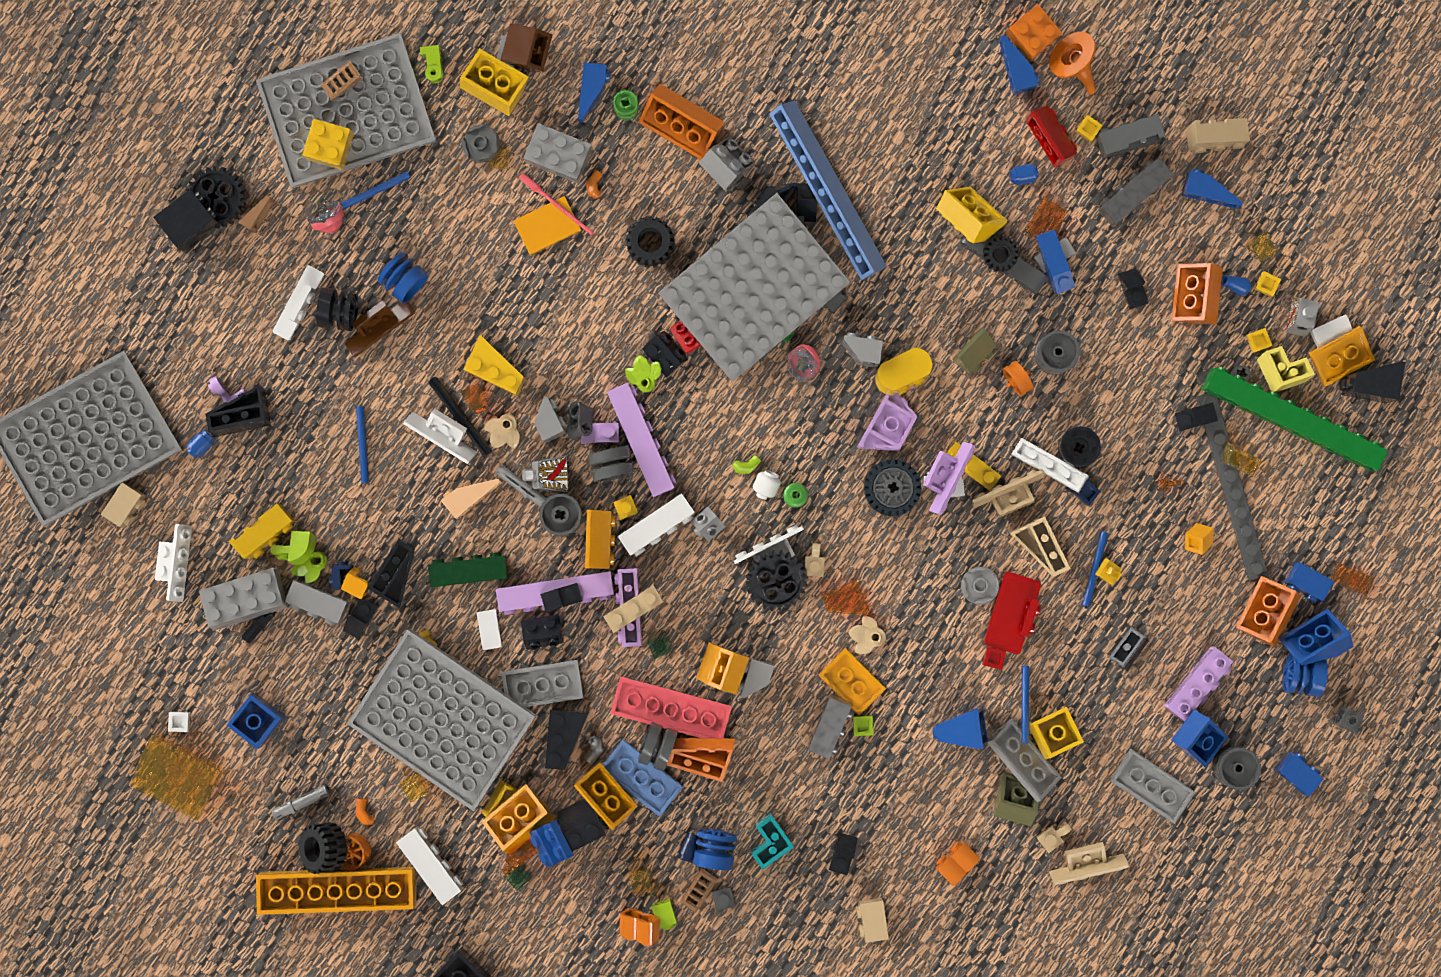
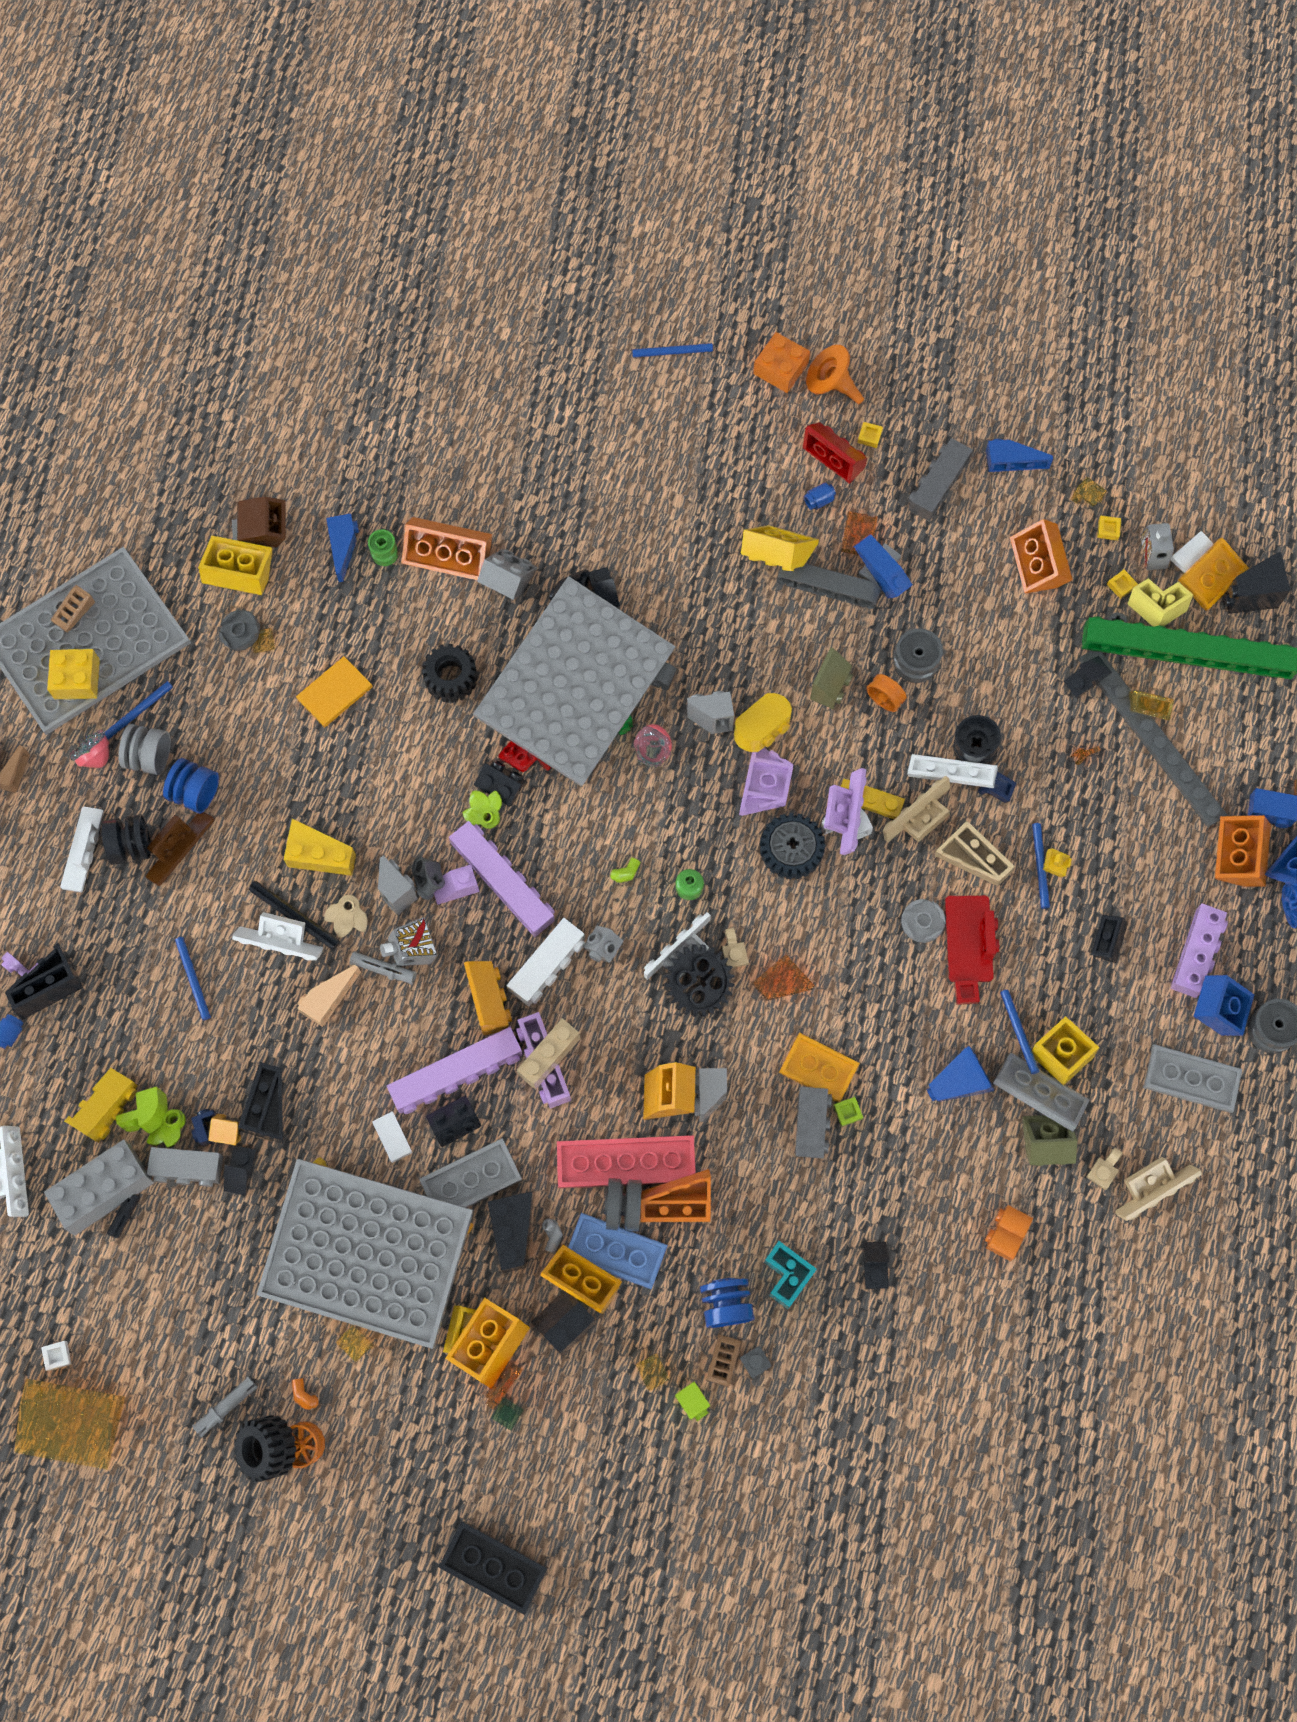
camera: 15 degrees left, 15 degrees down
(256, 721) = (147, 1324): blue brick -> none
(336, 890) = (294, 1497): light orange brick -> none
(373, 233) = (144, 749): none -> light grey wheel
(430, 865) = (399, 1431): white brick -> none
(434, 68) = (169, 573): lime leg -> none
(468, 571) = (349, 1078): dark green brick -> none
(475, 399) = (306, 889): clear orange brick -> none
(536, 188) = (311, 657): coral piece -> none
(550, 844) = (534, 1353): blue plate -> none
(553, 506) = (429, 993): dark grey wheel -> none
(557, 153) = (324, 615): light grey brick -> none
(561, 597) = (462, 1071): black slope -> none
(591, 184) = (370, 636): orange arm -> none
(610, 460) = (476, 910): dark grey wheel -> none
(625, 507) = (507, 956): yellow plate -> none
(639, 926) = (668, 1424): orange brick -> none
(659, 646) = (591, 1096): clear green plate -> none
(688, 847) = (695, 1315): dark blue cone -> none
(766, 484) = (654, 883): white head -> none
(827, 190) = (622, 568): medium blue brick -> none
(864, 634) = (816, 1012): tan plate -> none
(873, 920) = (936, 1330): tan brick -> none
(989, 254) = (823, 563): black tyre -> none
(1019, 70) = (779, 400): blue slope -> none
(1130, 136) = (916, 427): dark grey wedge -> none
(1133, 288) = (973, 573): black slope -> none
(1199, 538) = (1139, 799): light orange panel -> none
(1217, 135) = (1001, 402): tan wedge -> none
(1238, 285) = (1078, 536): blue cone -> none

